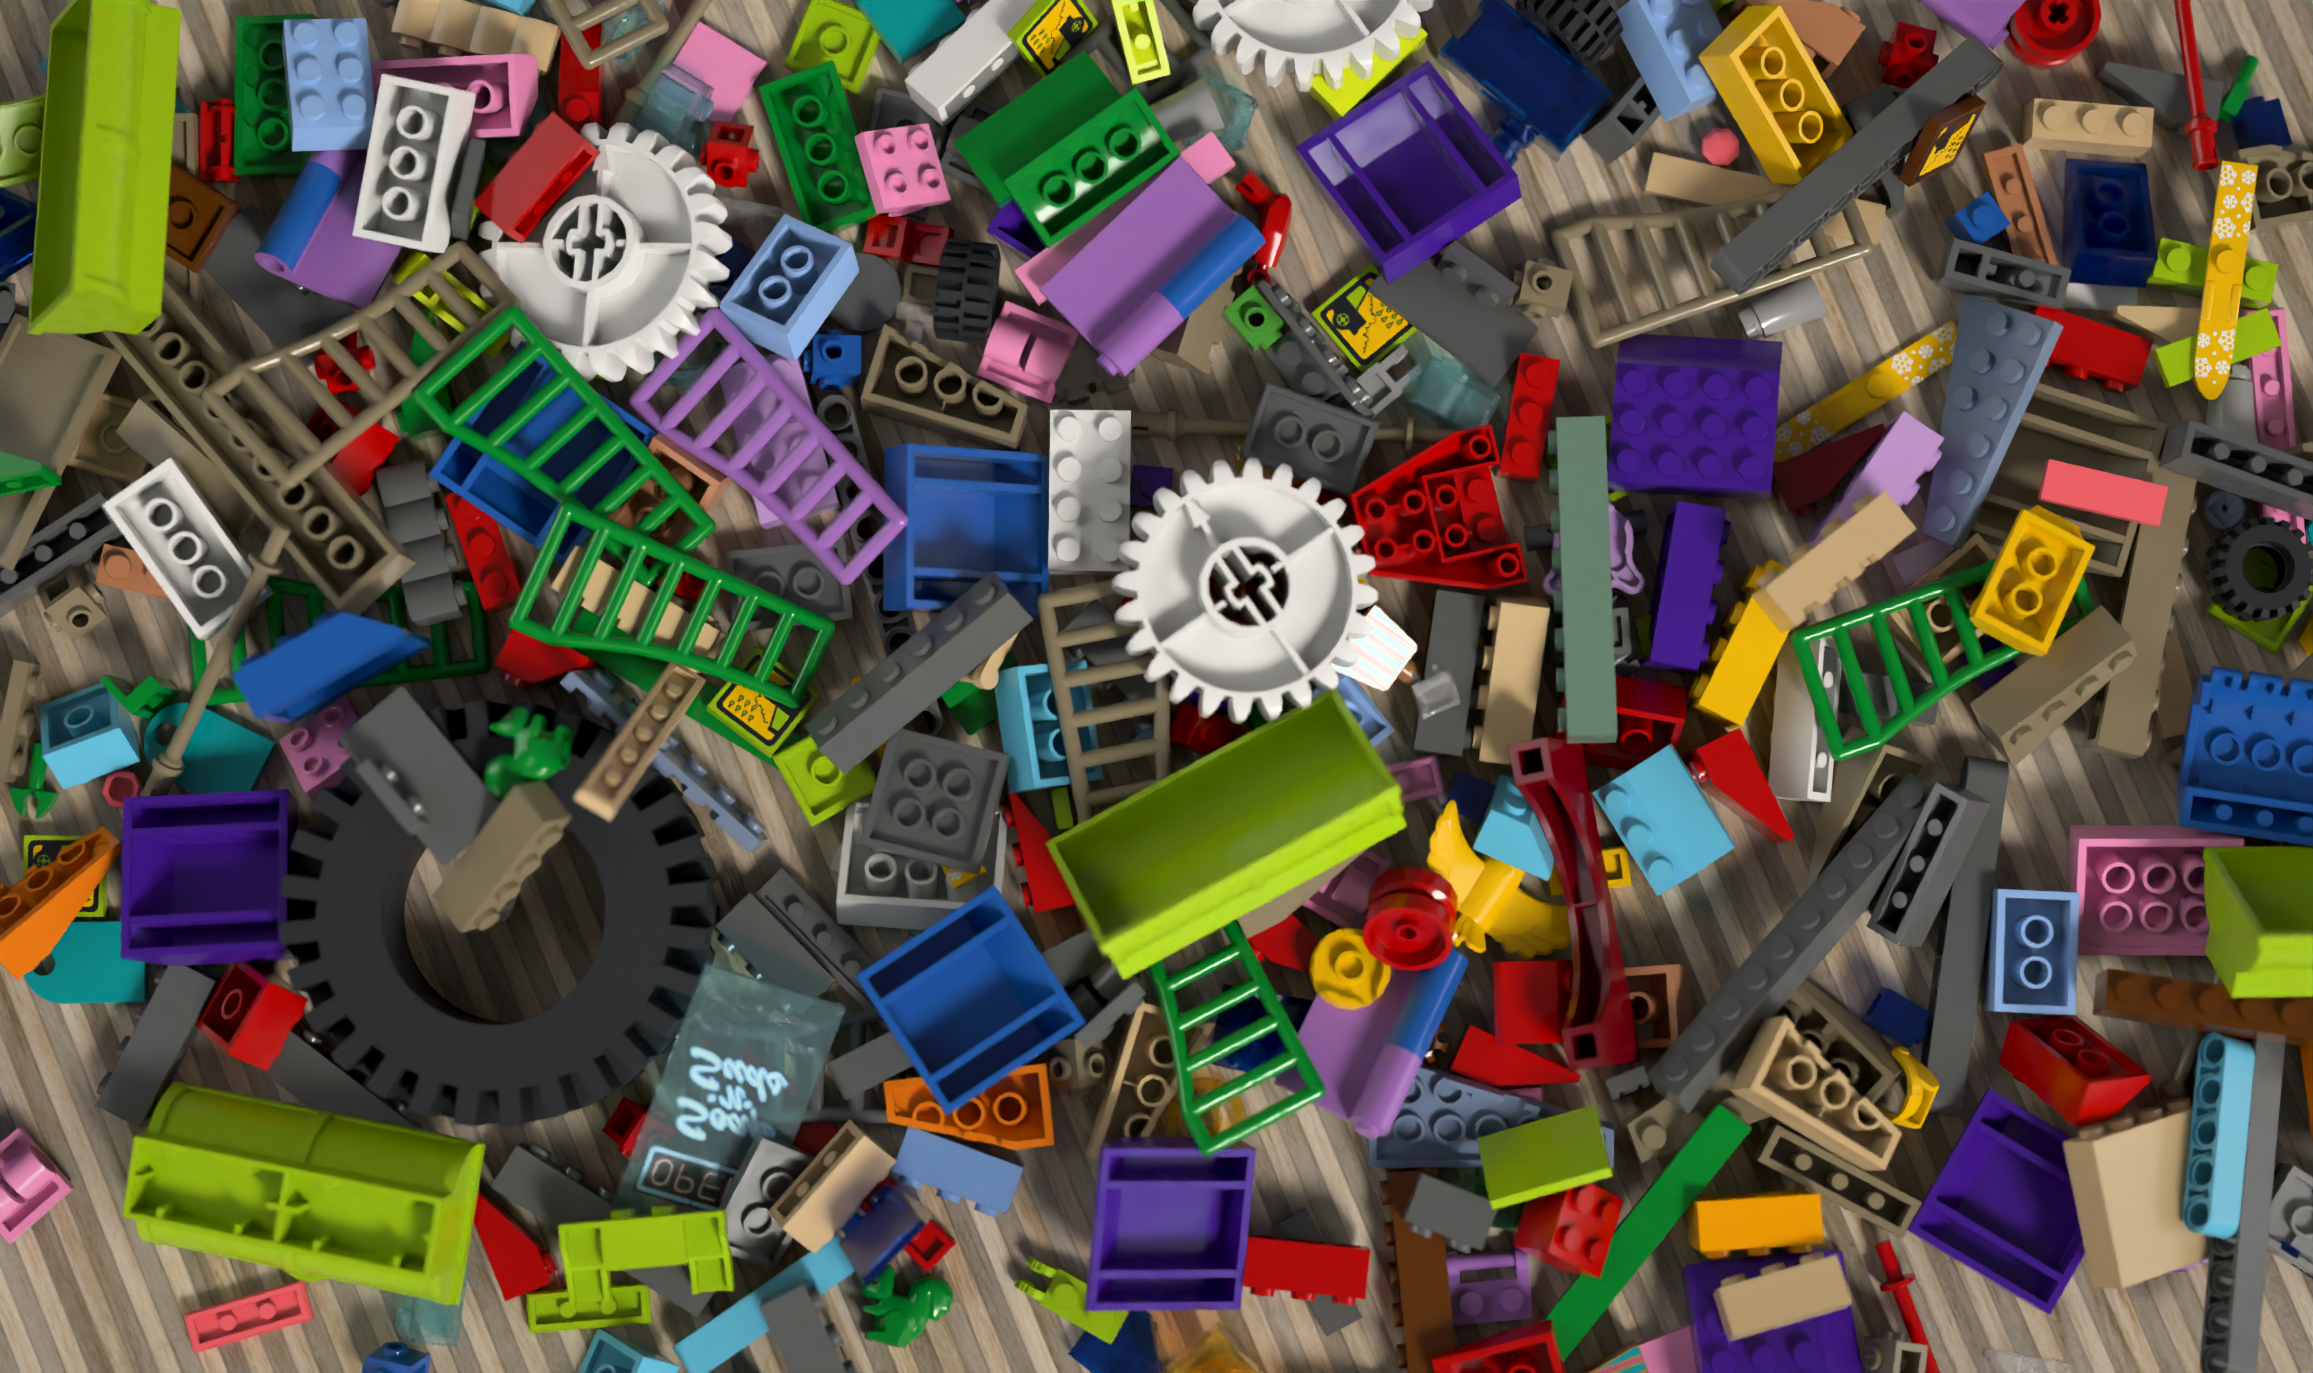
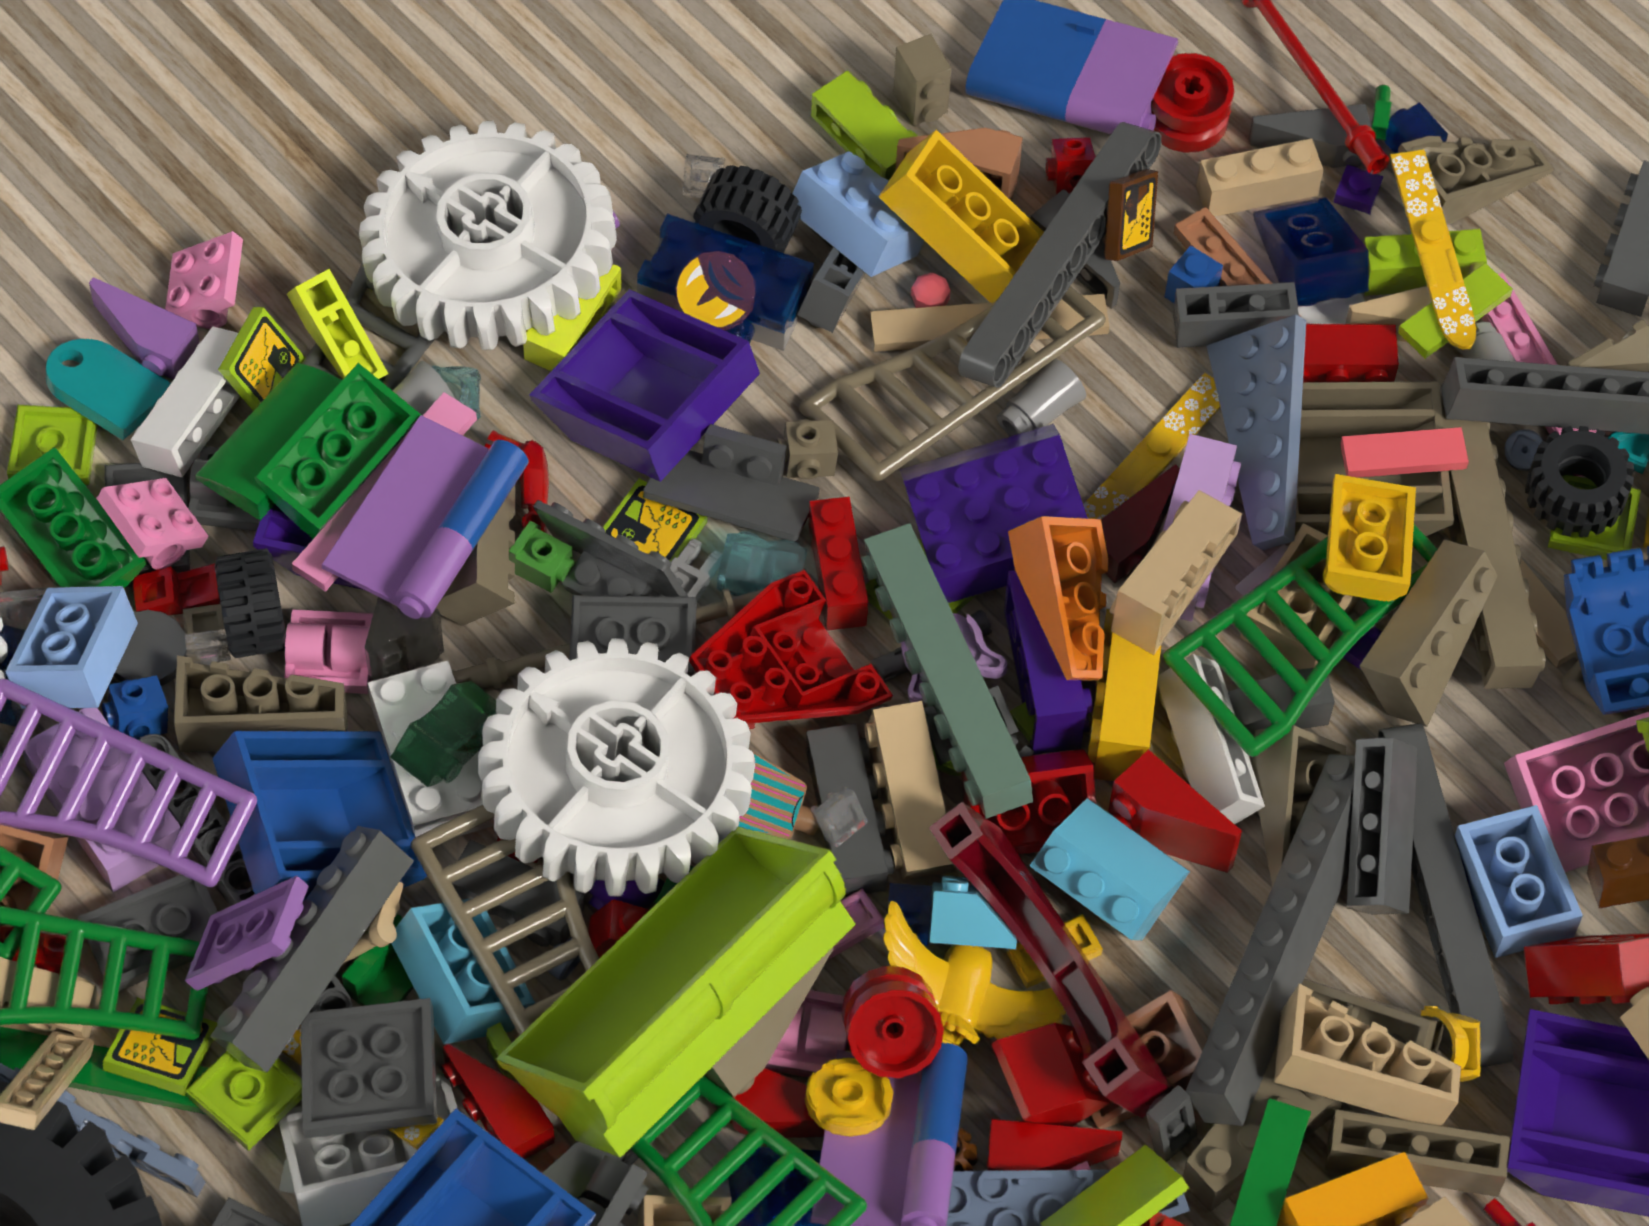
camera: 15 degrees left, 25 degrees down
(863, 642) = (247, 933): none -> medium lavender plate
(1104, 501) = (446, 736): none -> clear green brick
(1508, 99) = (716, 289): none -> tile
(1721, 535) = (1061, 574): none -> orange wedge
(1897, 1018) = (1414, 984): clear blue brick -> none
(2176, 167) = (1358, 189): none -> dark purple plate

